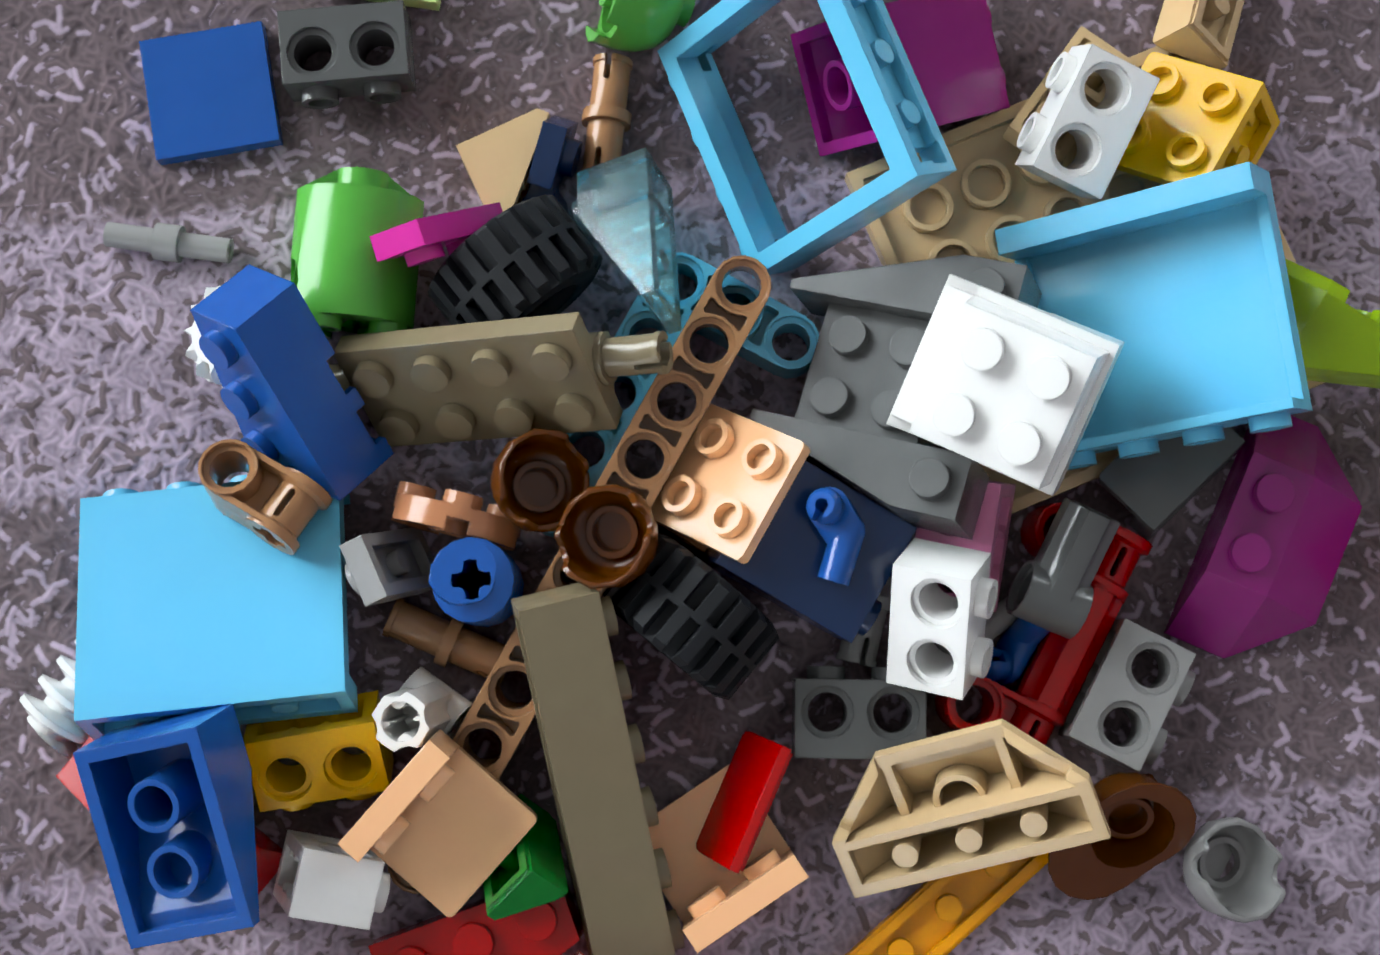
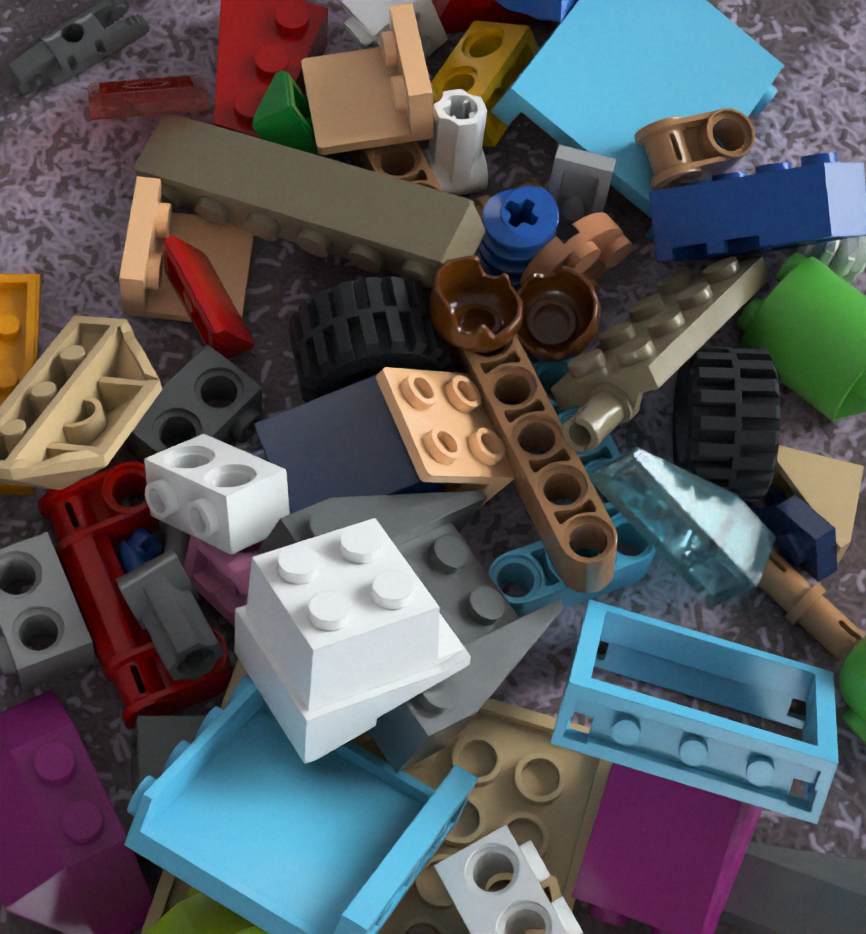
camera: 120 degrees right, 20 degrees down
(425, 237) = (802, 361): dark pink plate -> none
(840, 529) = (343, 465): blue arm -> none

